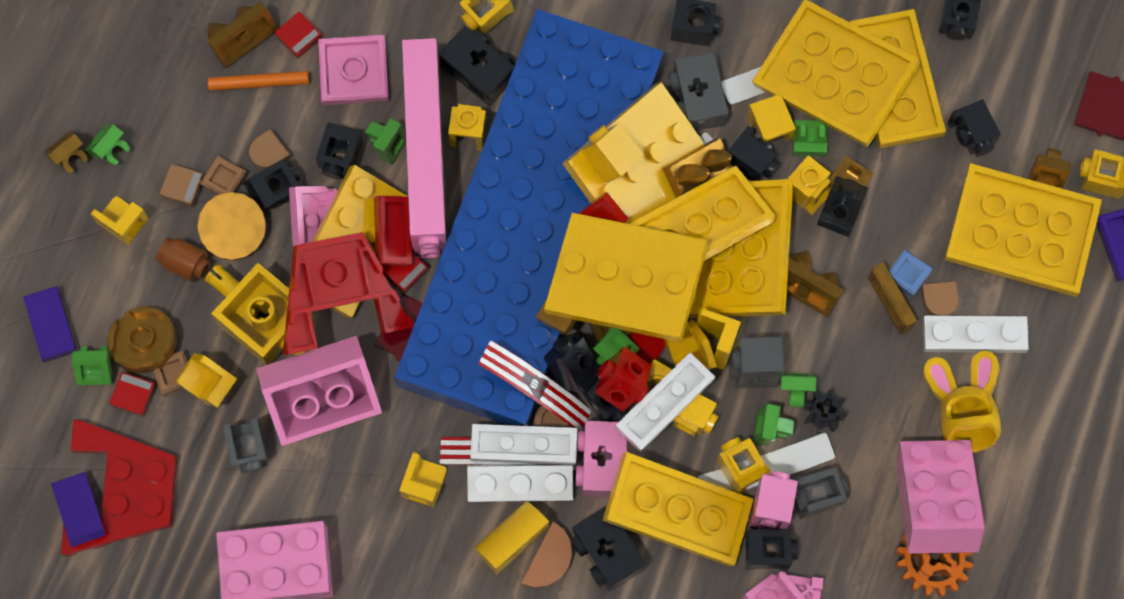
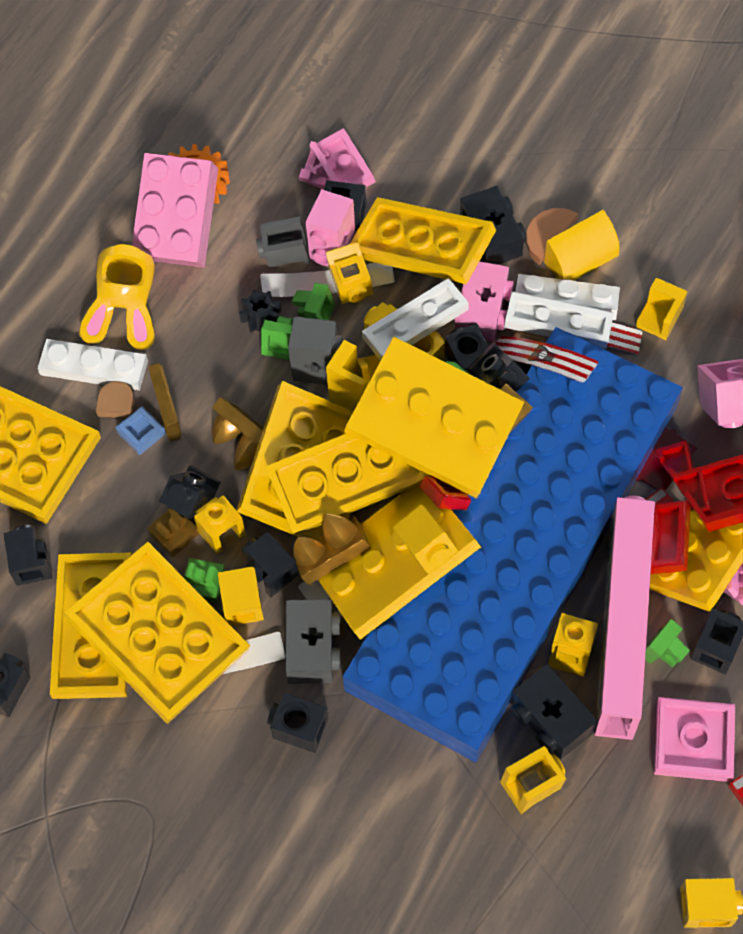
camera: 165 degrees left, 10 degrees down
(623, 379) = (454, 339): red brick -> none

